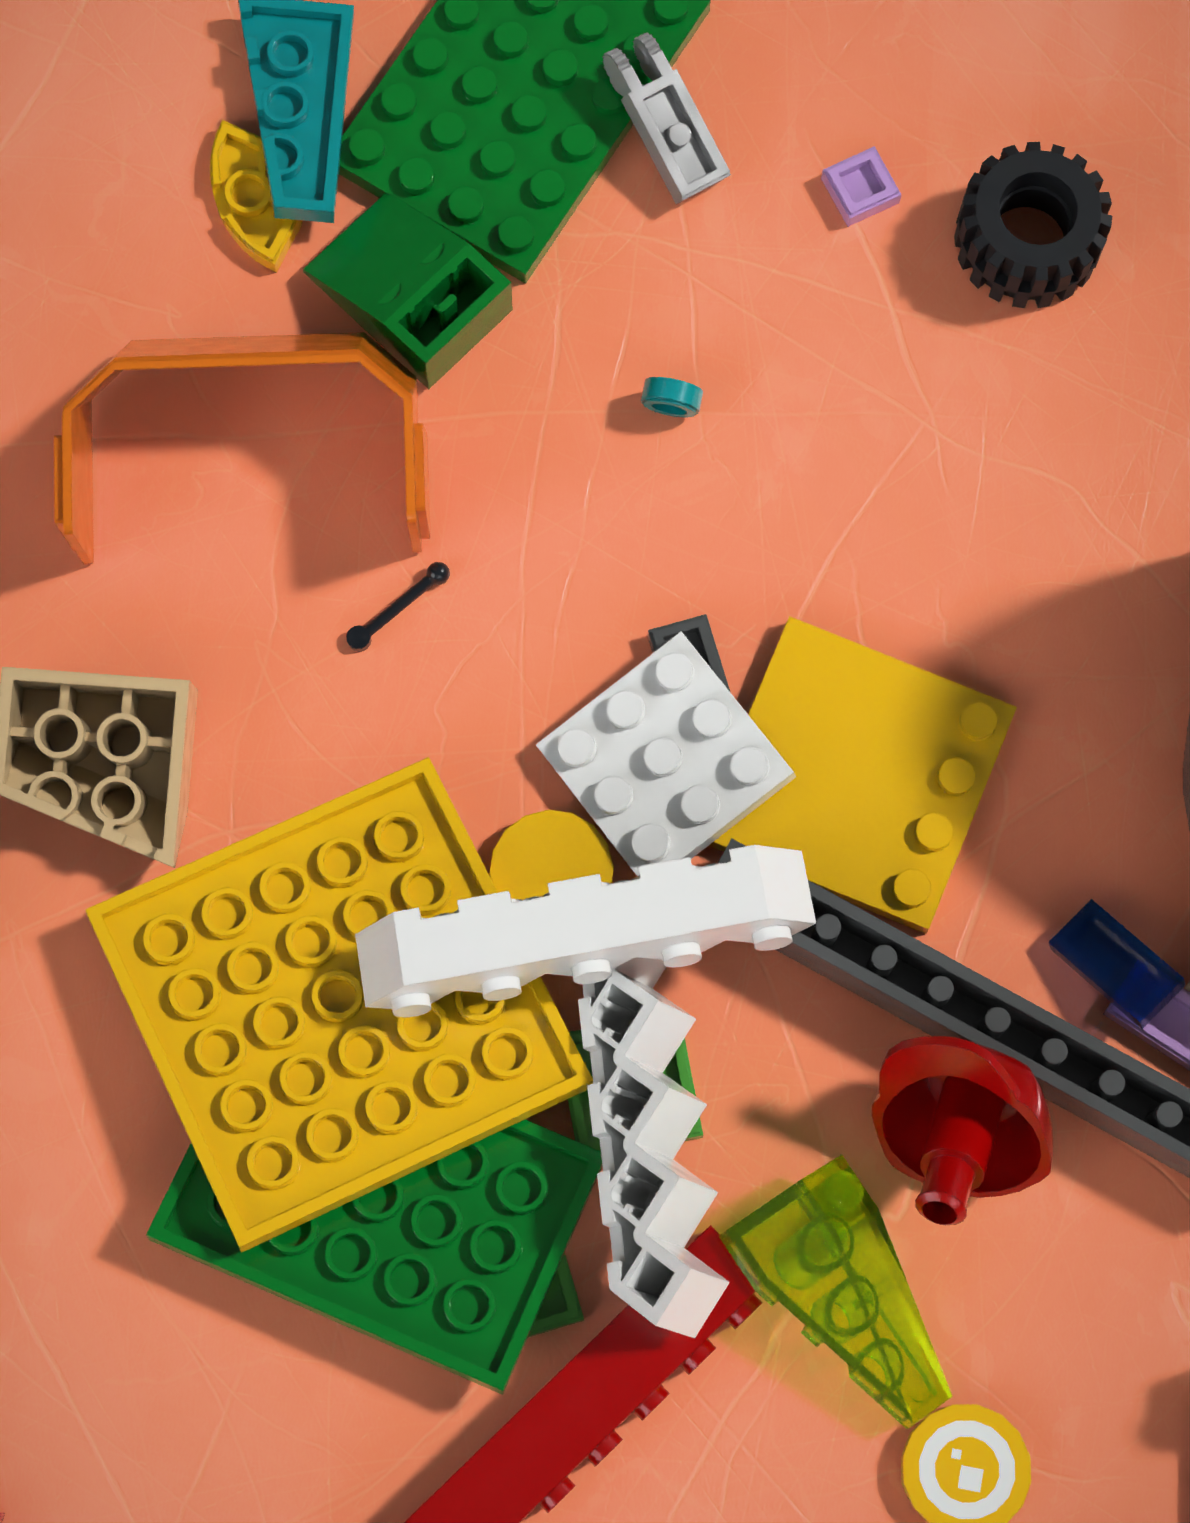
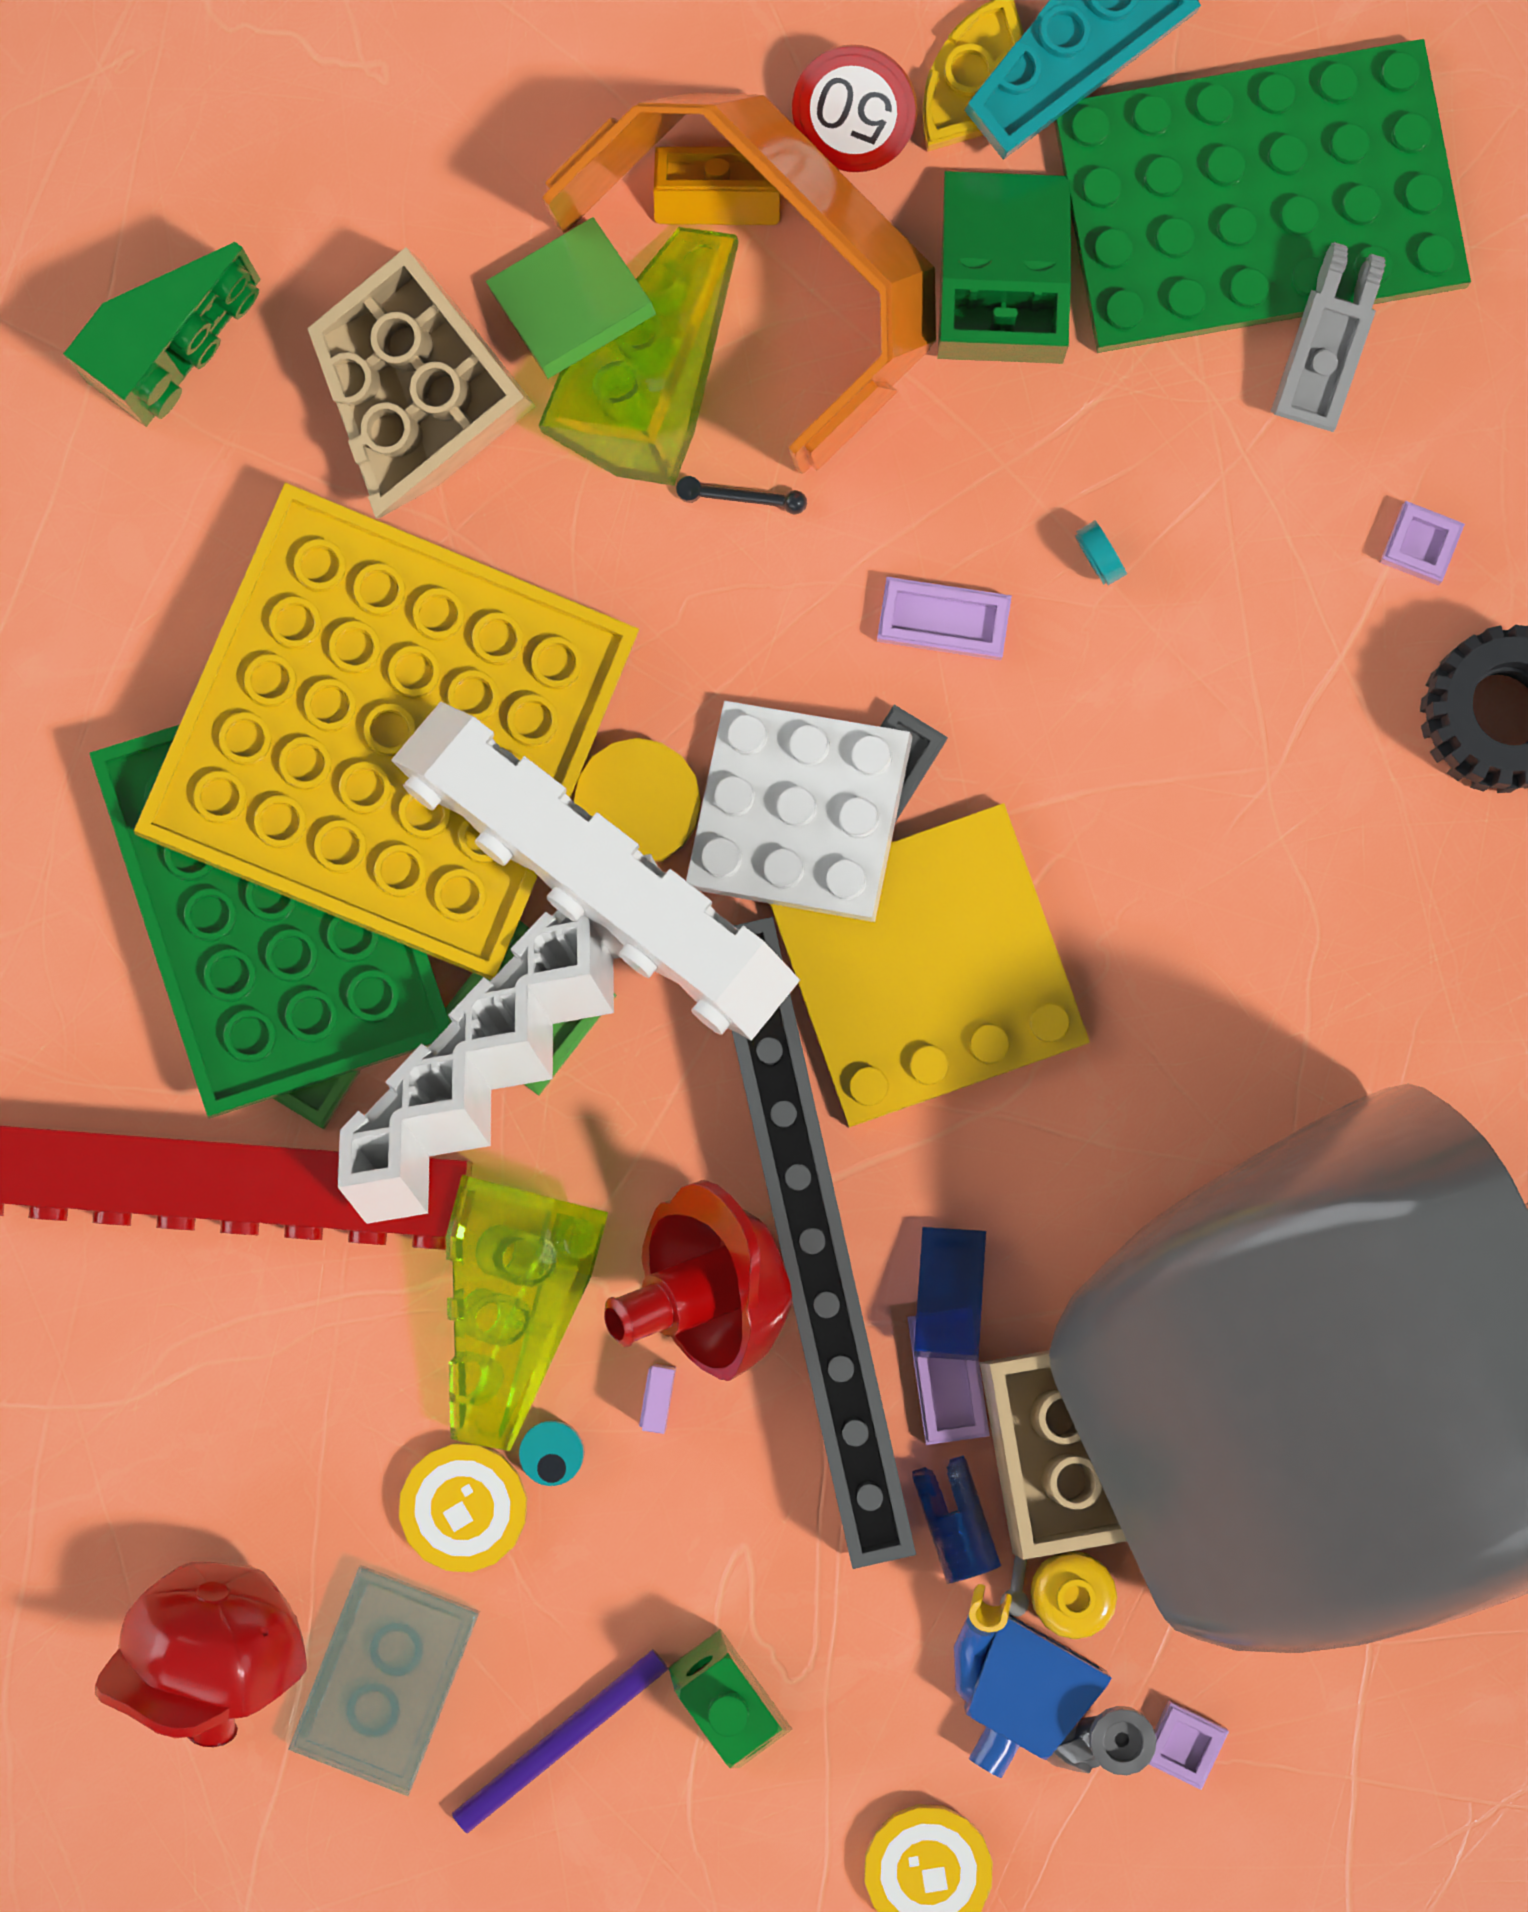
camera: 55 degrees right, 10 degrees up
(145, 594) = (571, 297): none -> bright green tile
(163, 430) = (711, 188): none -> light orange slope
(201, 285) = (855, 107): none -> piece
(248, 593) = (642, 393): none -> clear neon green wedge
(617, 544) = (944, 618): none -> lavender tile
(981, 1365) = (551, 1453): none -> teal tile
(1010, 1245) = (657, 1398): none -> lavender tile

